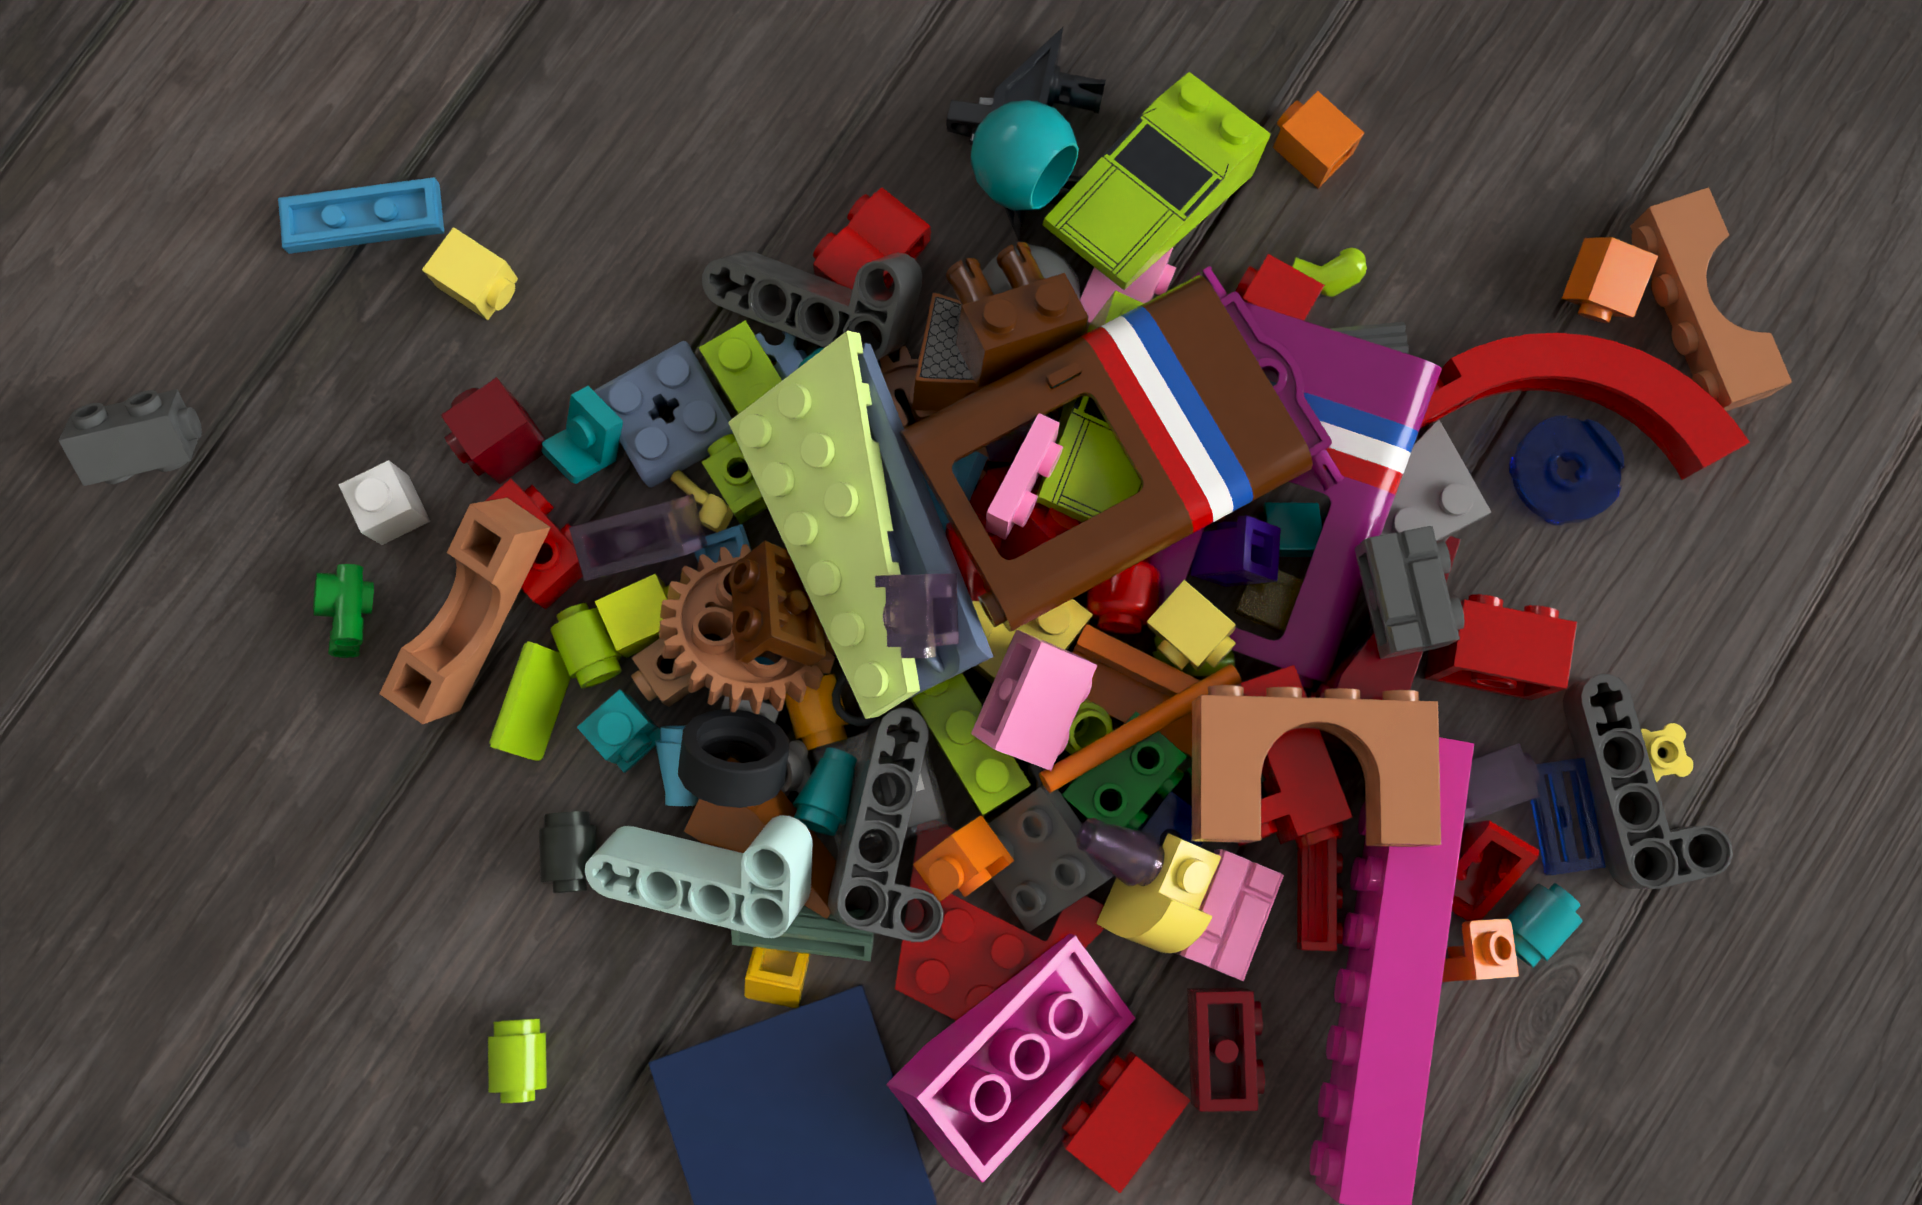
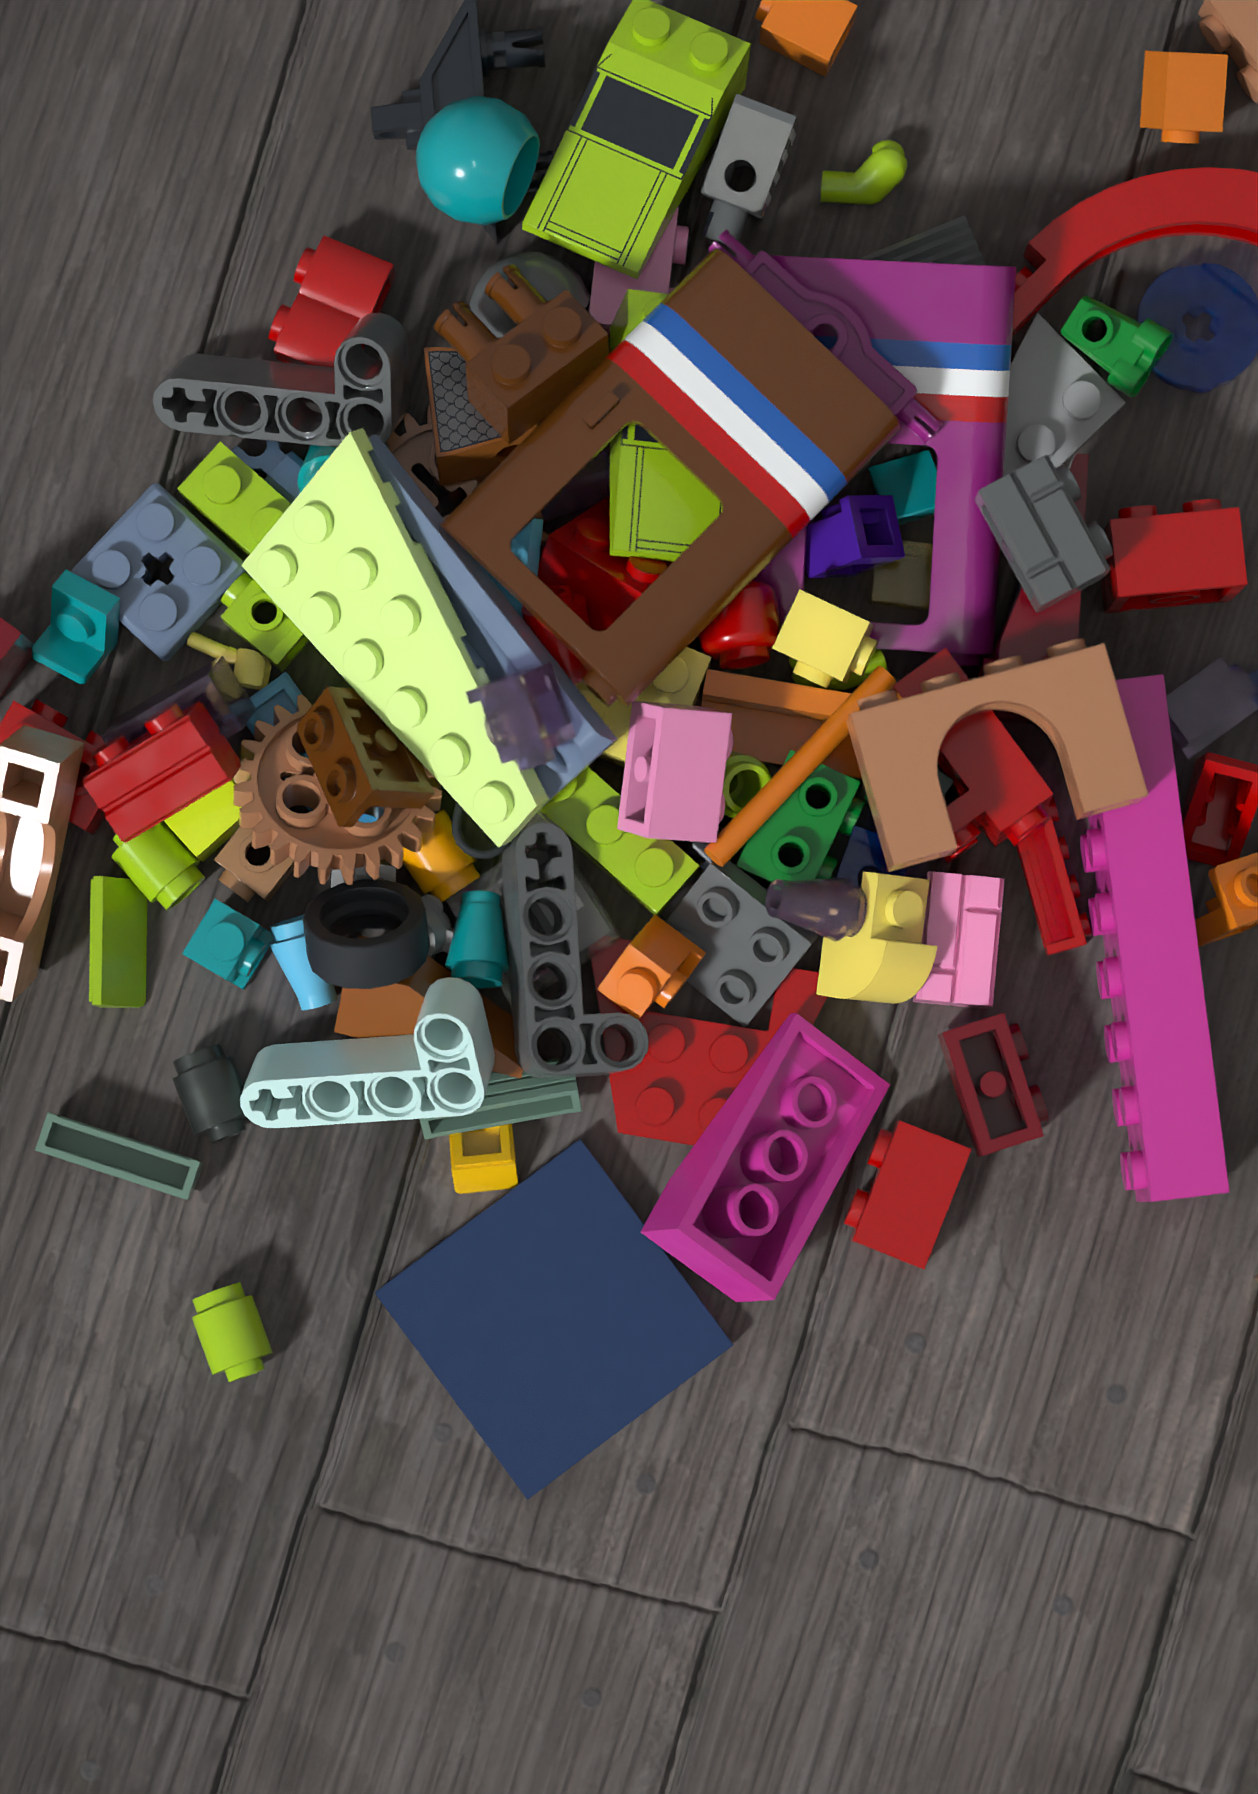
camera: 15 degrees left, 5 degrees up
(474, 880) = (119, 1156): none -> sand green piece
(605, 569) = (161, 770): none -> red brick
(1014, 497) = (588, 563): bright pink plate -> none
(1247, 214) = (752, 139): none -> torso
(1279, 288) = (812, 223): red brick -> none
(1507, 468) = (1127, 348): none -> green plate

